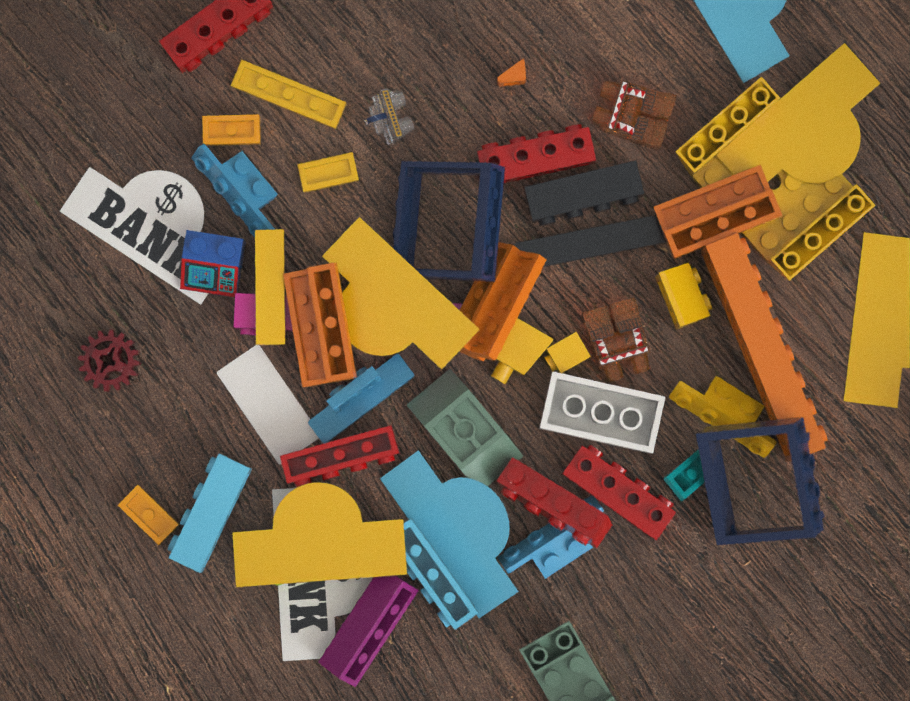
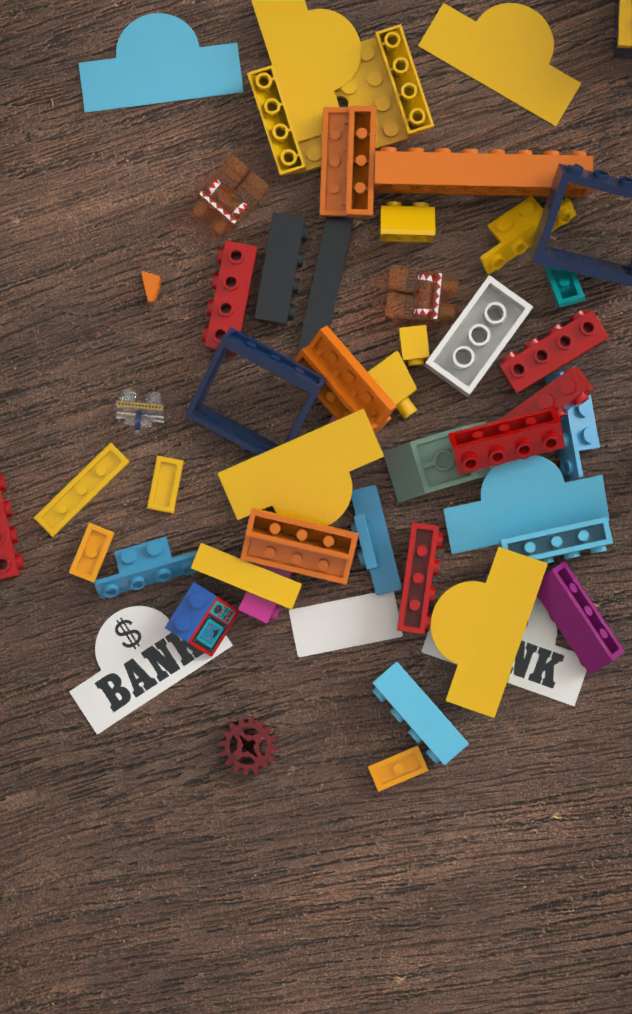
camera: 70 degrees left, 0 degrees up
(508, 482) = (506, 440): none -> red brick

